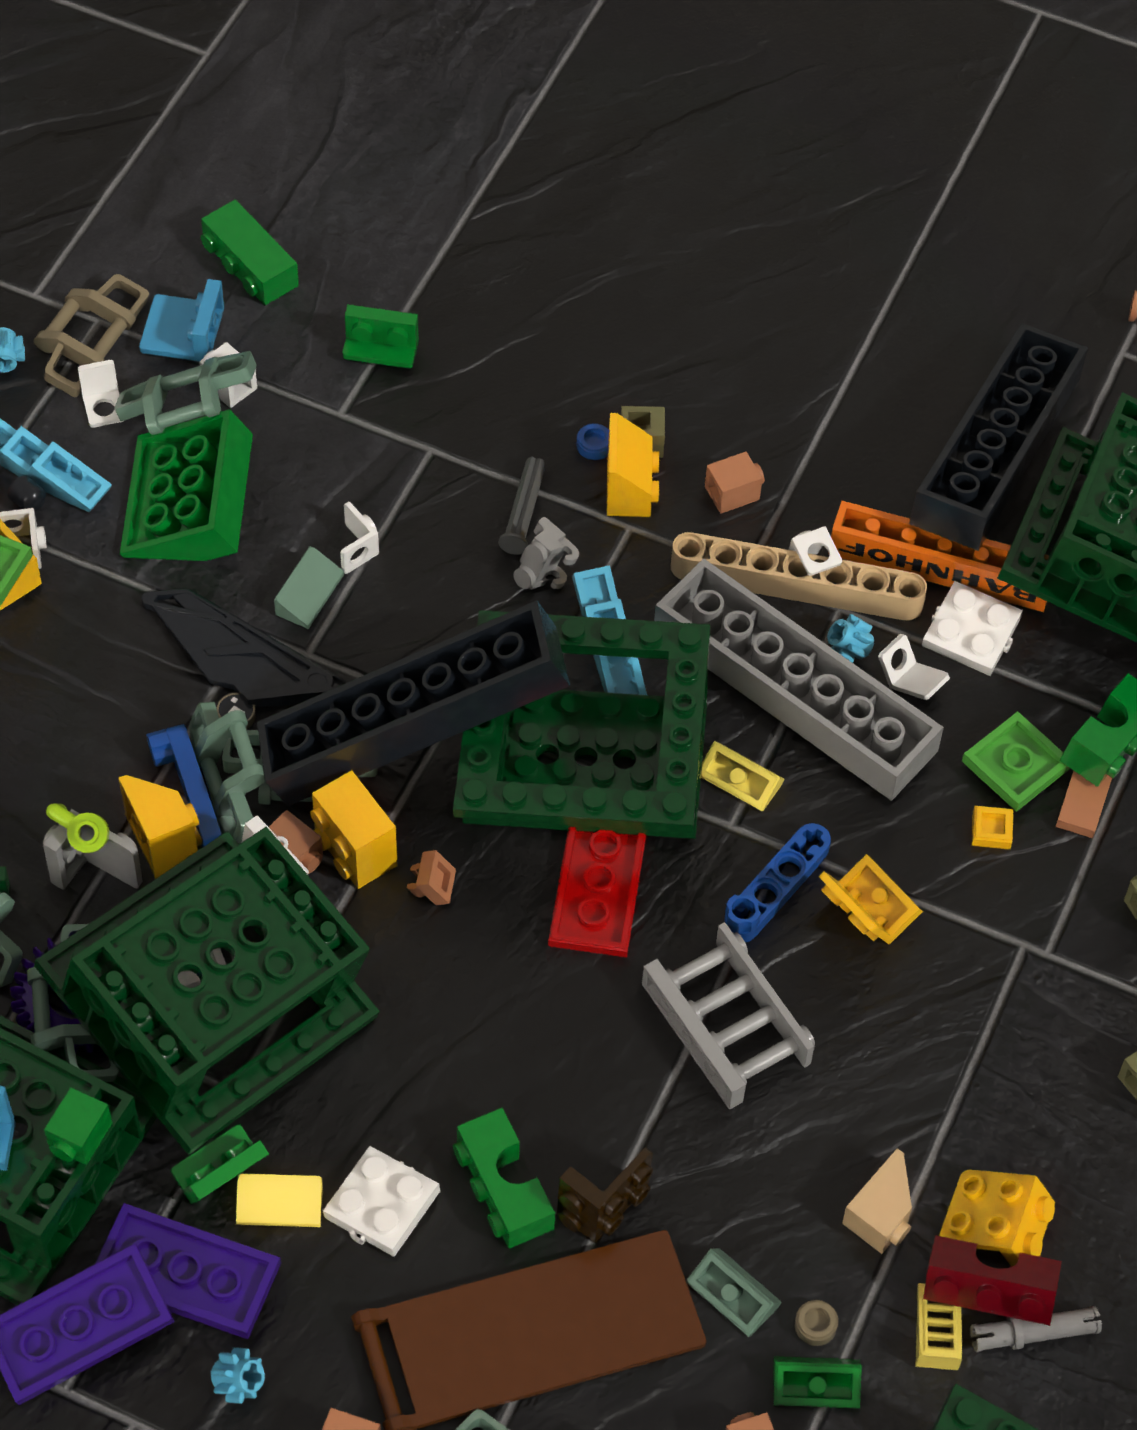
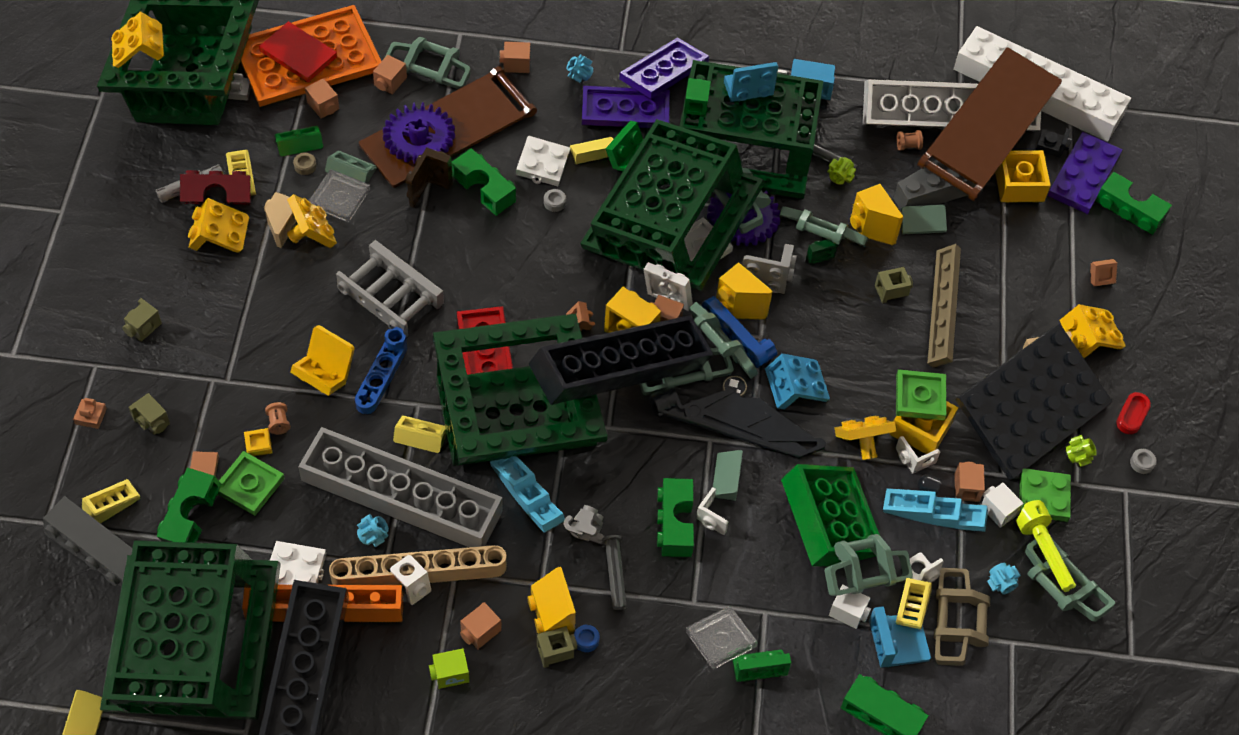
camera: 160 degrees right, 0 degrees up
(74, 823) = (774, 252): lime plate -> none
(81, 573) = (865, 433): none -> yellow plate
(128, 370) = (916, 587): none -> light yellow slope
(136, 682) = (795, 378): none -> dark azure bracket
(389, 1119) = (554, 200): none -> light grey tile
(401, 570) = (676, 537): none -> green arch
(416, 388) = (721, 637): none -> clear tile
(595, 1277) = (415, 125): none -> dark purple gear
(768, 1234) = (340, 195): none -> clear tile
(790, 443) = (449, 668): none -> lime brick
(834, 1161) = (310, 221): none -> yellow plate
(909, 675) = (324, 520): white bracket -> none
(956, 846) = (281, 415): none -> nougat bush

